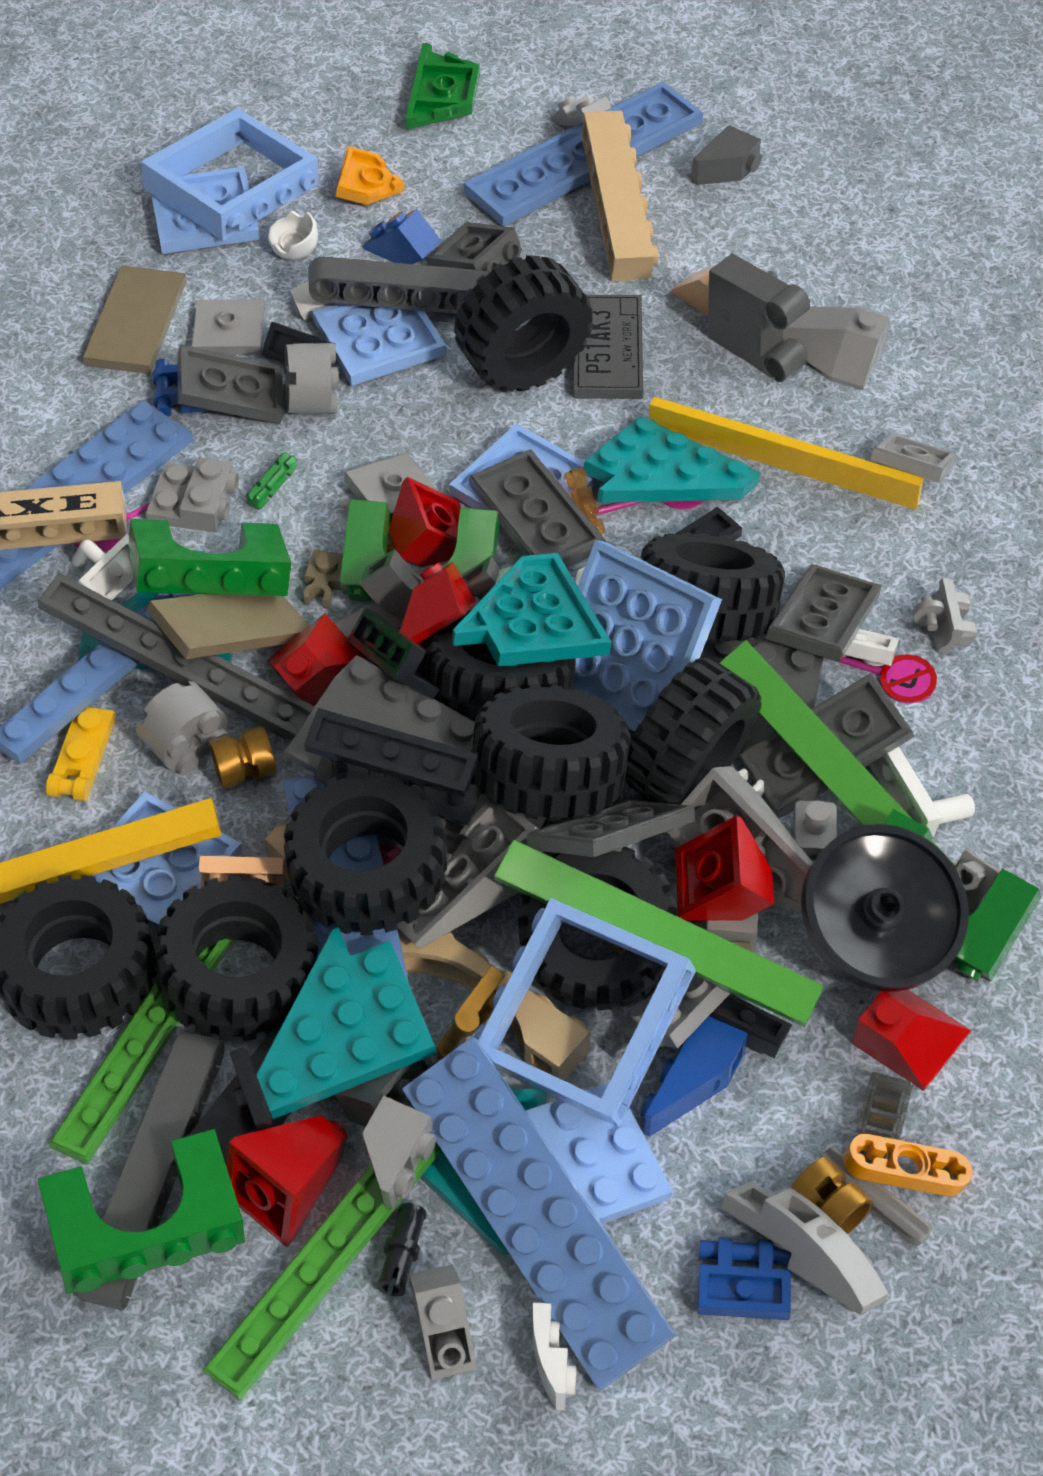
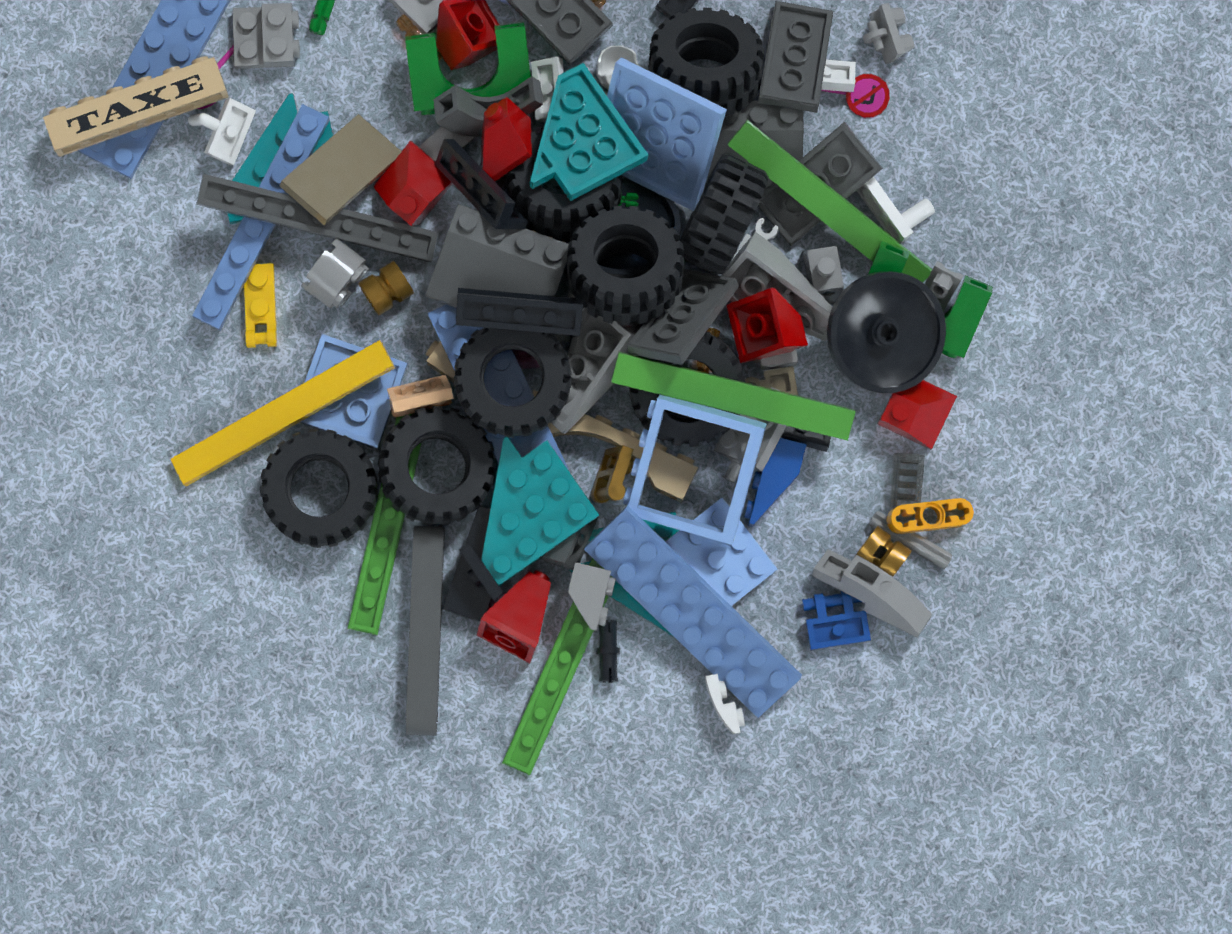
camera: 20 degrees left, 30 degrees up
(97, 1254) = (410, 712): green arch -> none
(164, 566) = (282, 141): green arch -> none
(322, 576) = (395, 91): dark tan plate -> none
(443, 1321) = (648, 695): light grey slope -> none

